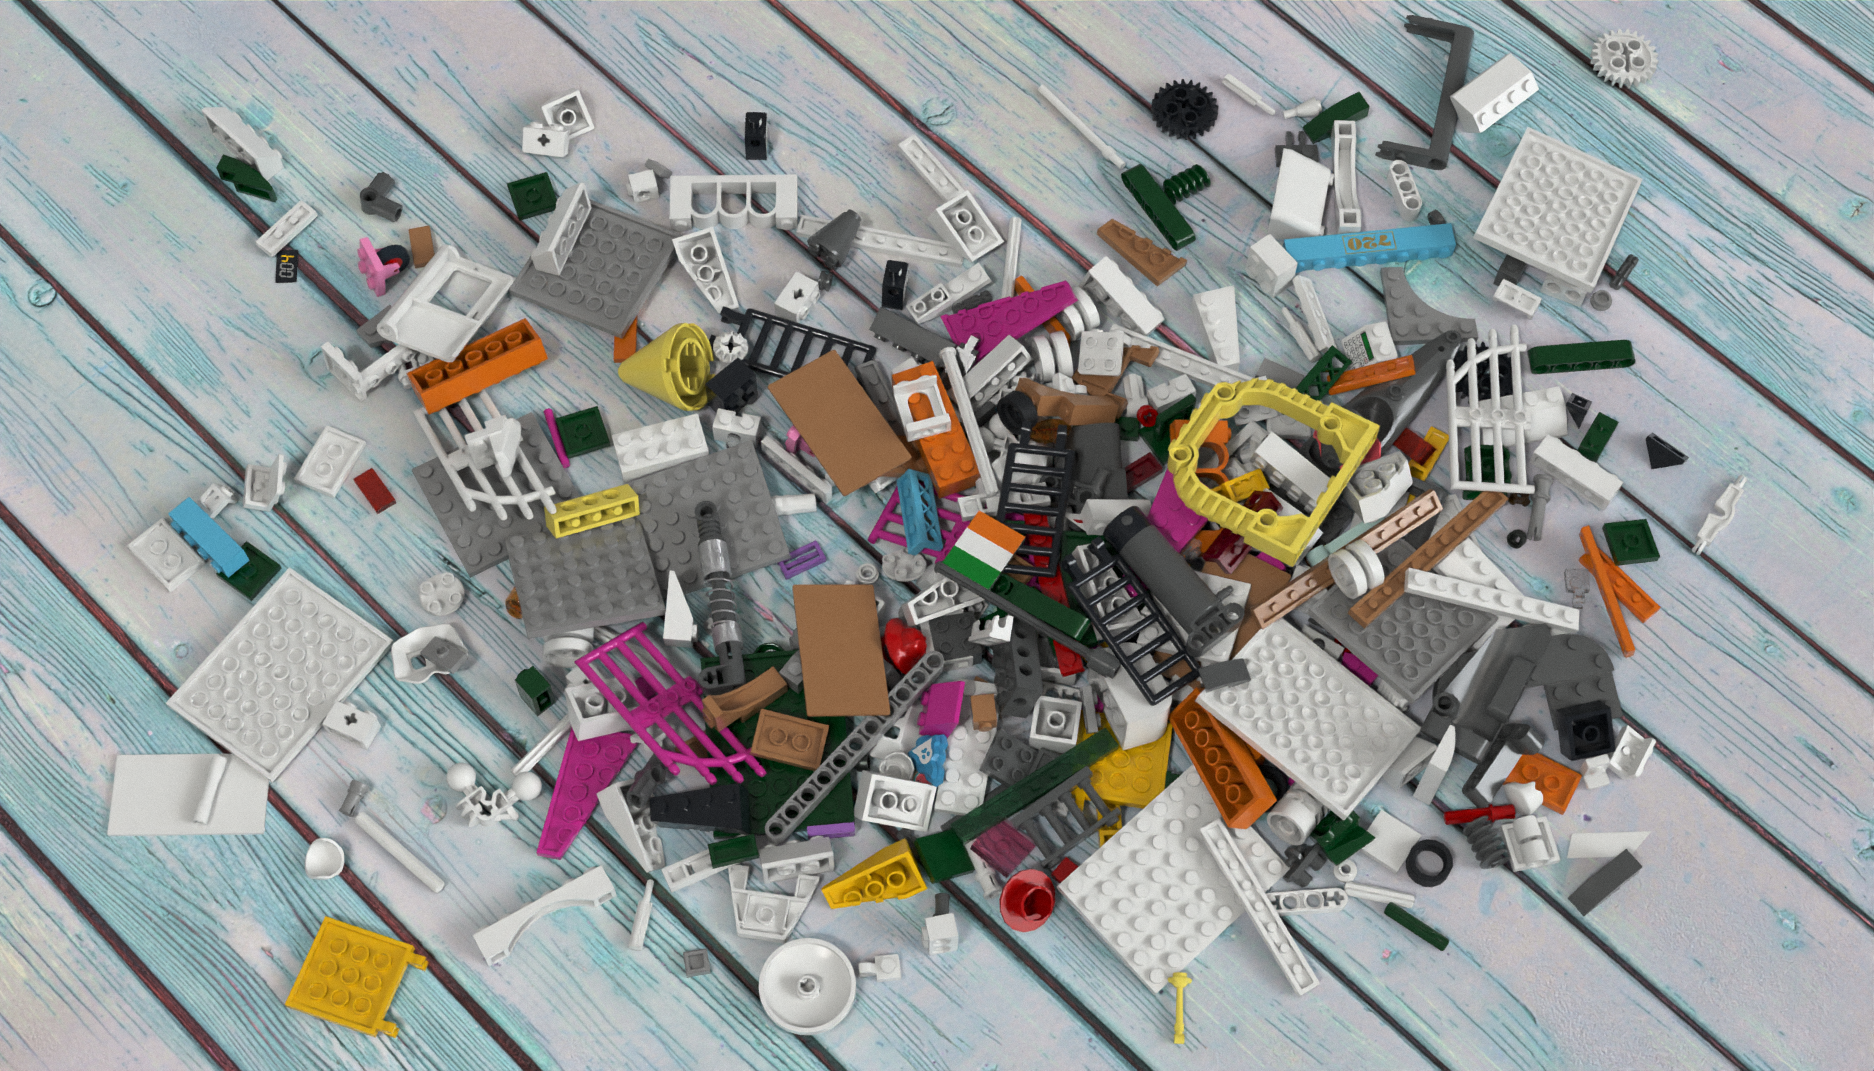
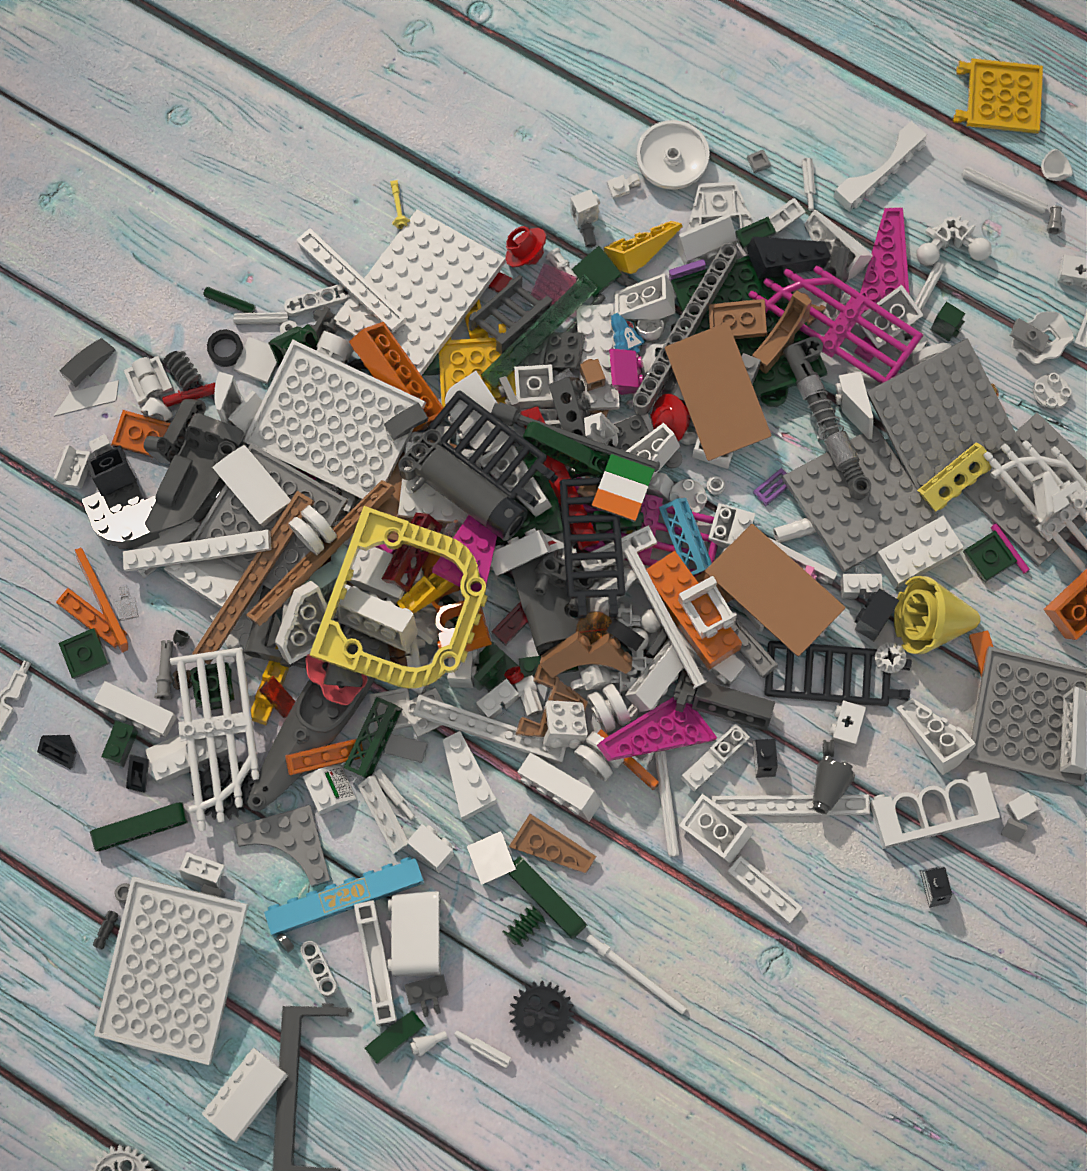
camera: 170 degrees right, 10 degrees up
(862, 516) = (729, 525): none -> white slope
(973, 302) = (692, 758): dark grey axle -> none
(1207, 252) = (491, 857): none -> white sticker
(1419, 649) = (252, 485): none -> white slope

